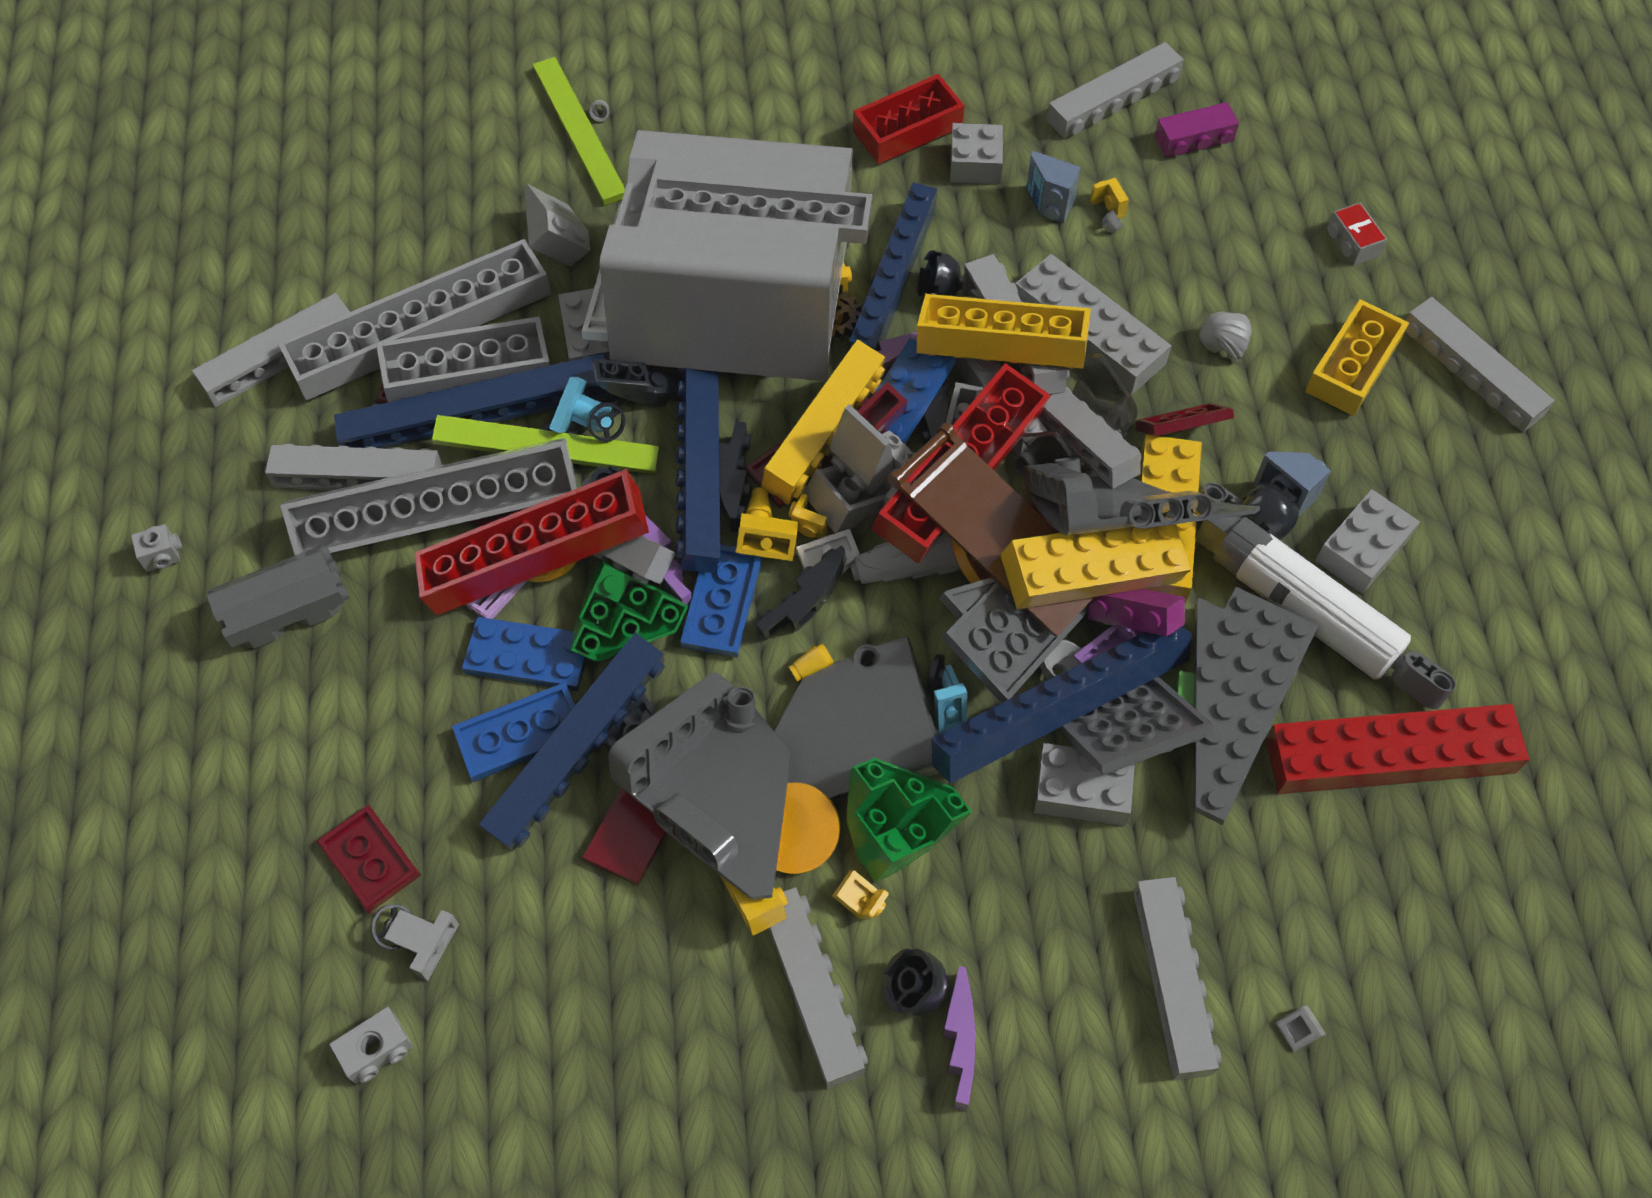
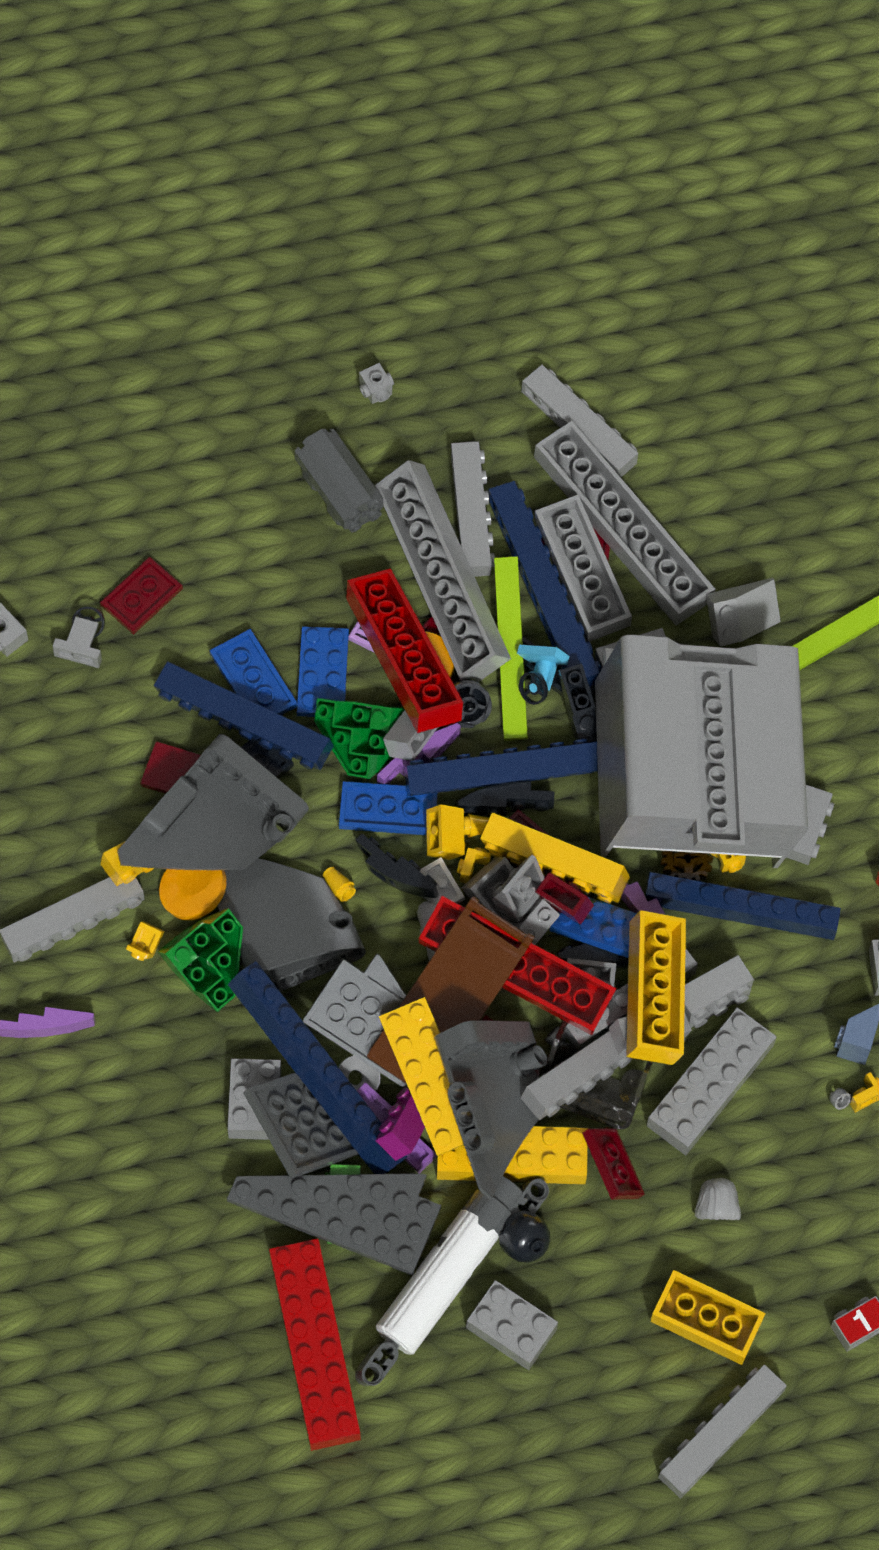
camera: 80 degrees right, 5 degrees up
(915, 982) = (78, 985): black cylinder -> none
(940, 276) = (745, 944): black cylinder -> none
(951, 700) = (304, 988): medium azure piece -> none
(1175, 979) = (104, 1174): light grey brick -> none
(1297, 471) = (558, 1258): sand blue slope -> none
(1300, 1028) = (77, 1273): light grey slope -> none

